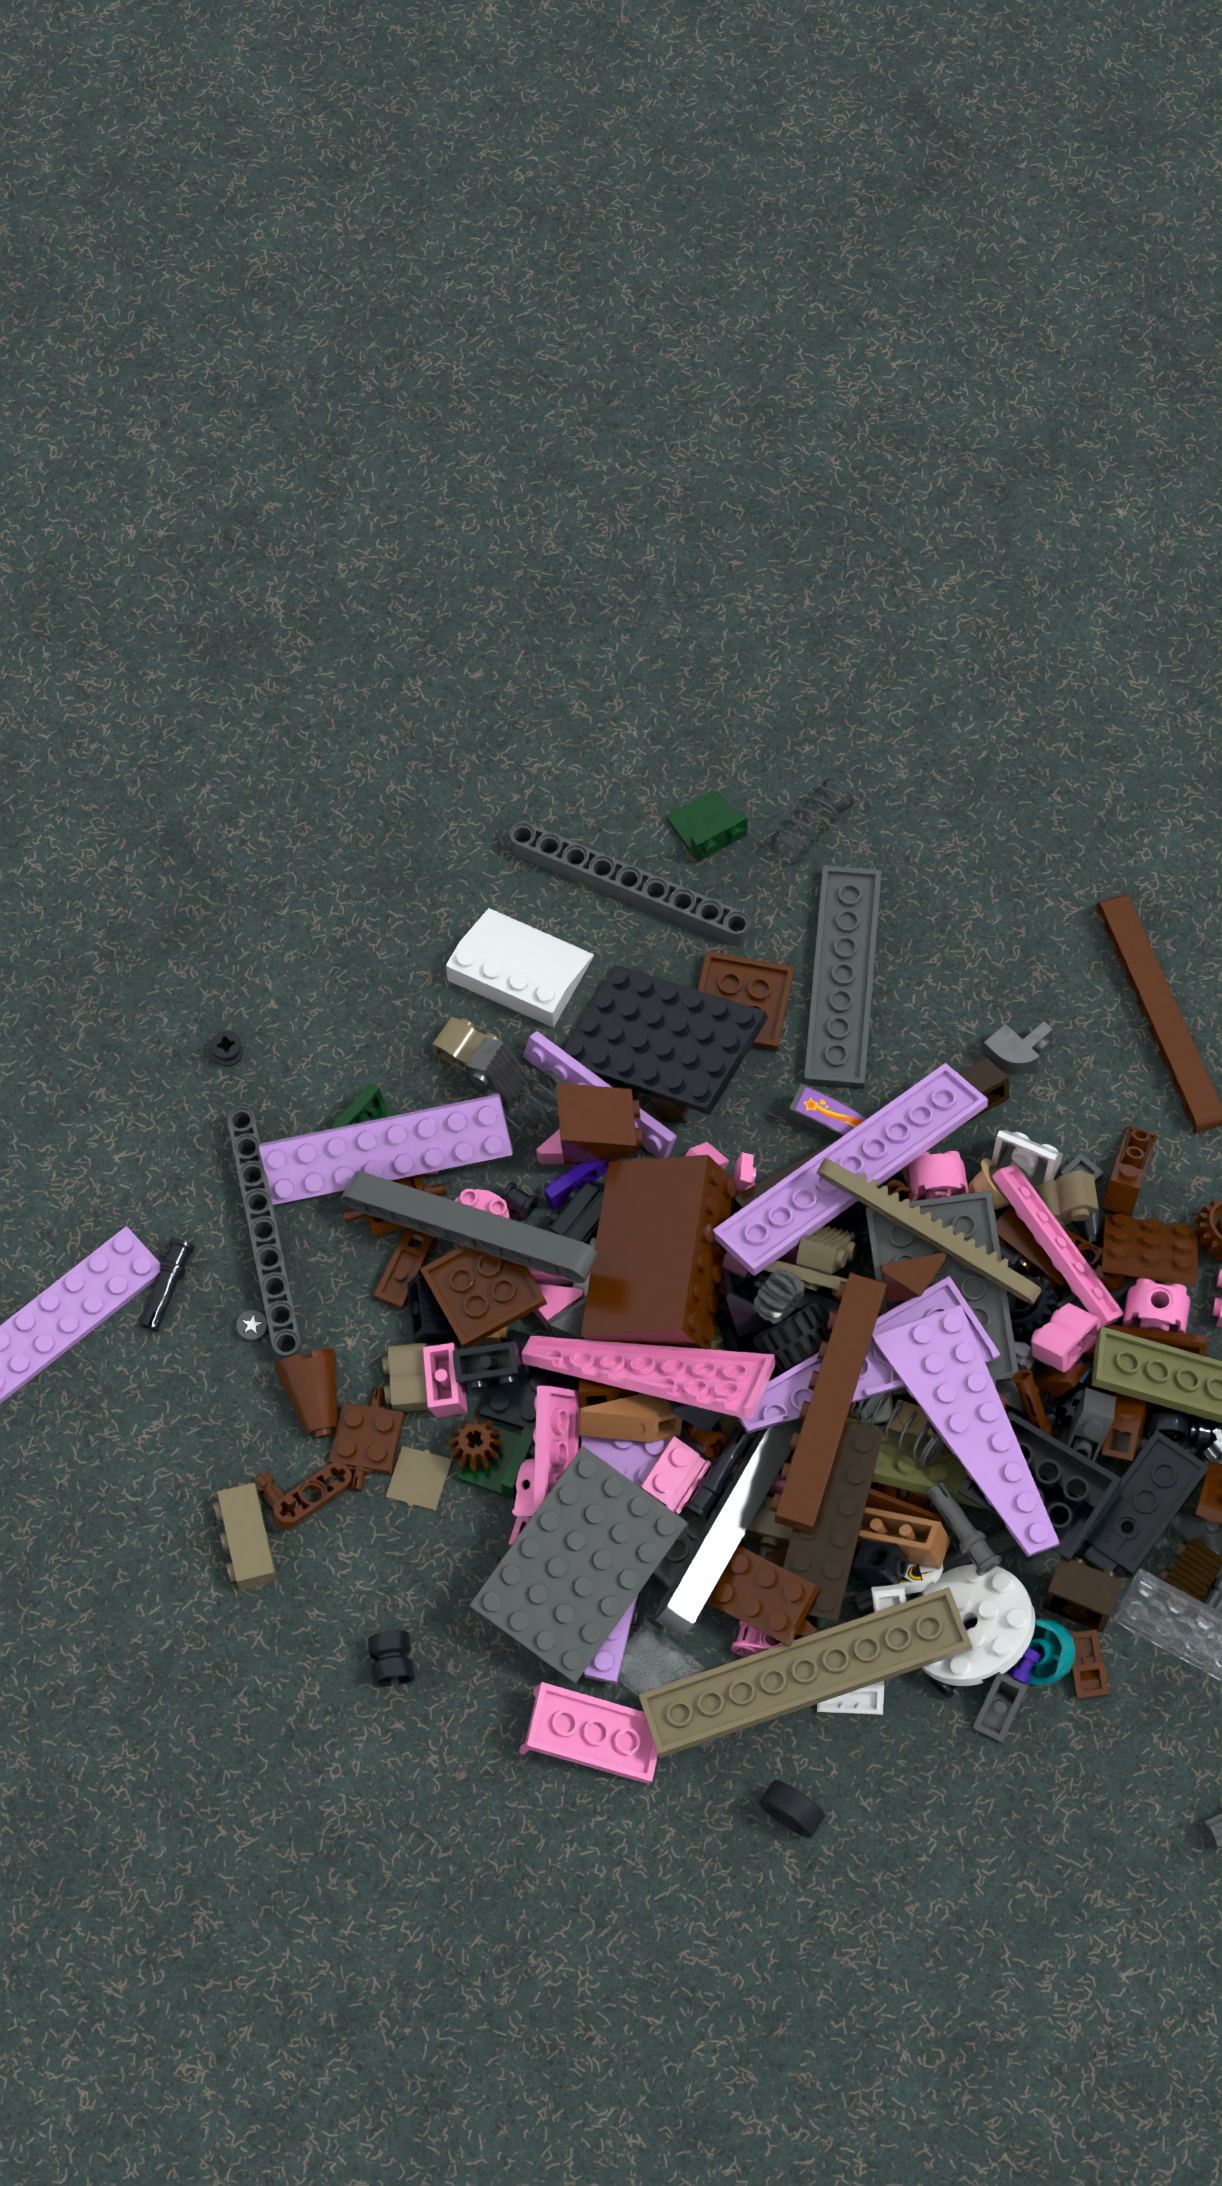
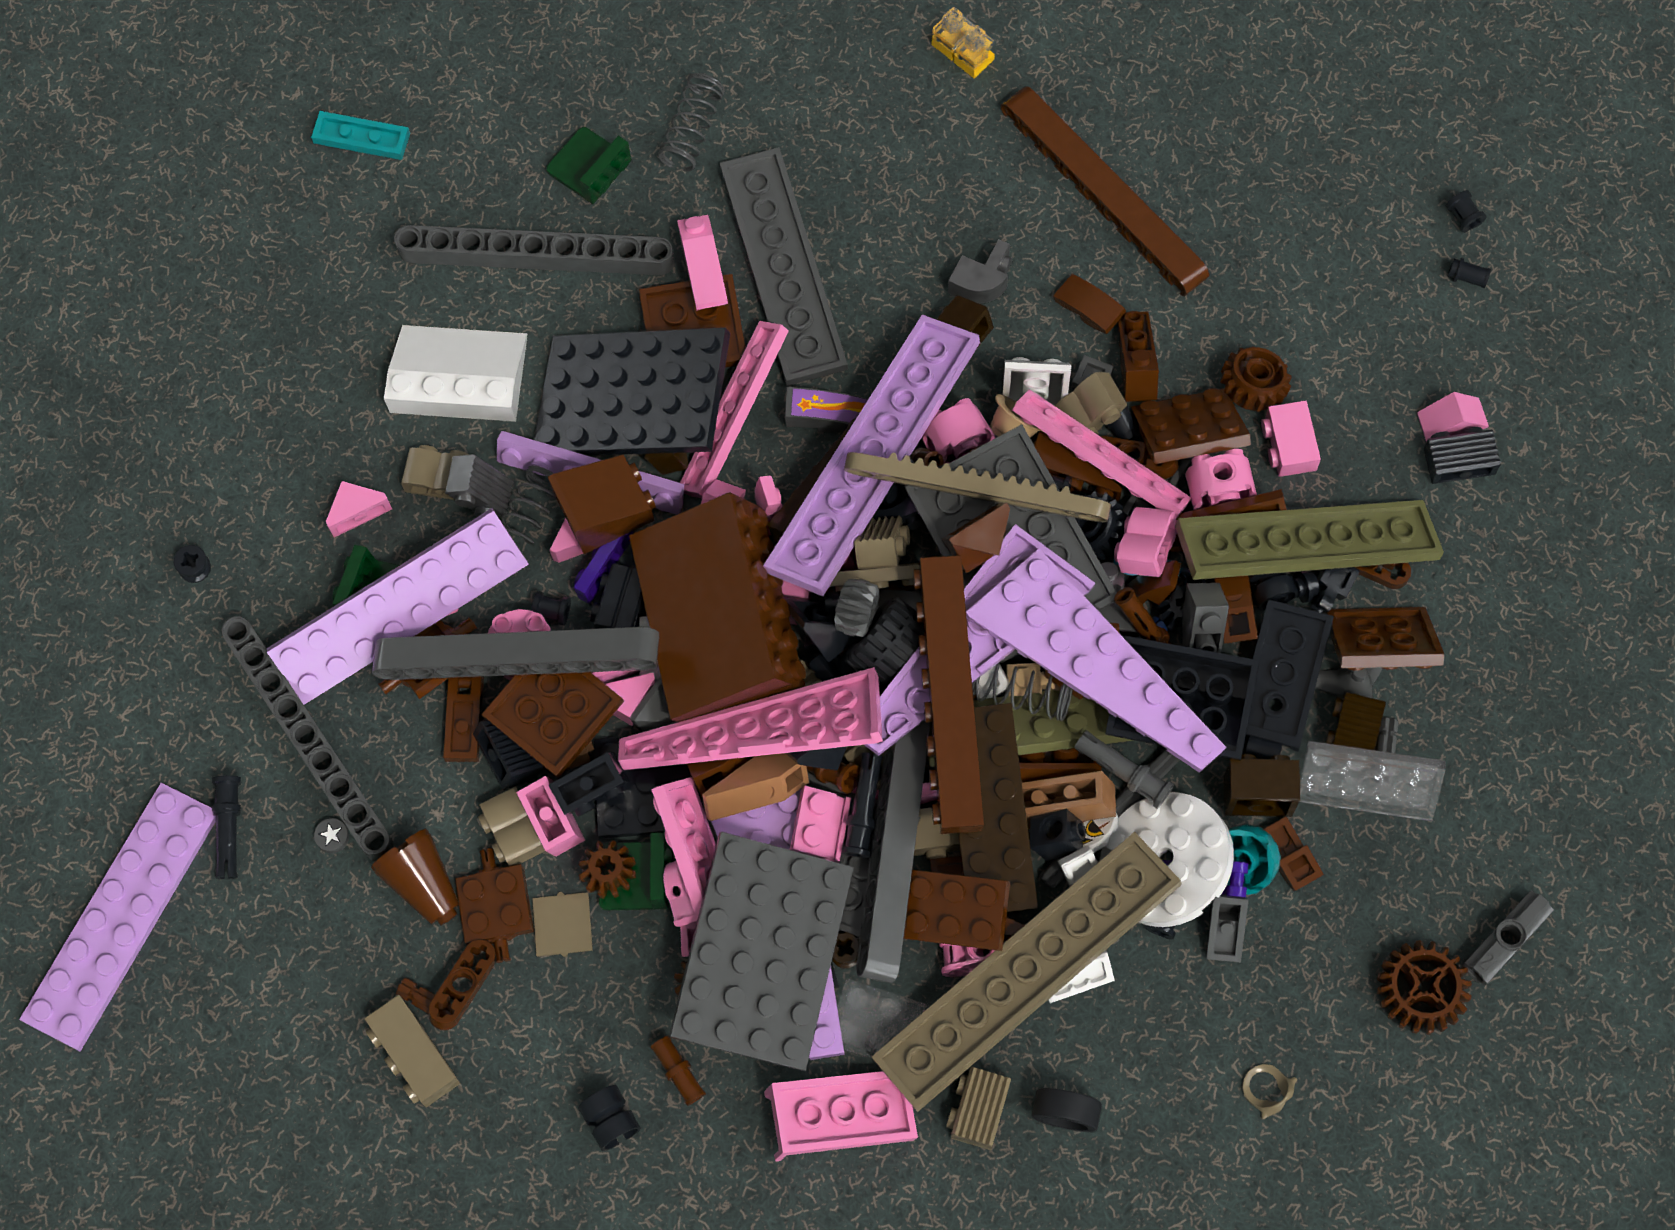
camera: 20 degrees left, 5 degrees up
(384, 1050) = (354, 507): none -> bright pink slope
(467, 1642) = (678, 1070): none -> reddish brown pin
(518, 729) = (360, 135): none -> teal plate
(657, 1585) = (847, 960): none -> dark brown bush
(716, 1777) = (979, 1108): none -> dark tan brick
(749, 1083) = (735, 405): none -> bright pink plate
(771, 946) = (702, 262): none -> bright pink slope
(998, 1865) = (1285, 1084): none -> dark tan piece
(1084, 835) = (963, 42): none -> clear hips
(1106, 1109) = (1090, 303): none -> reddish brown slope
(1163, 1841) = (1435, 999): none -> reddish brown gear

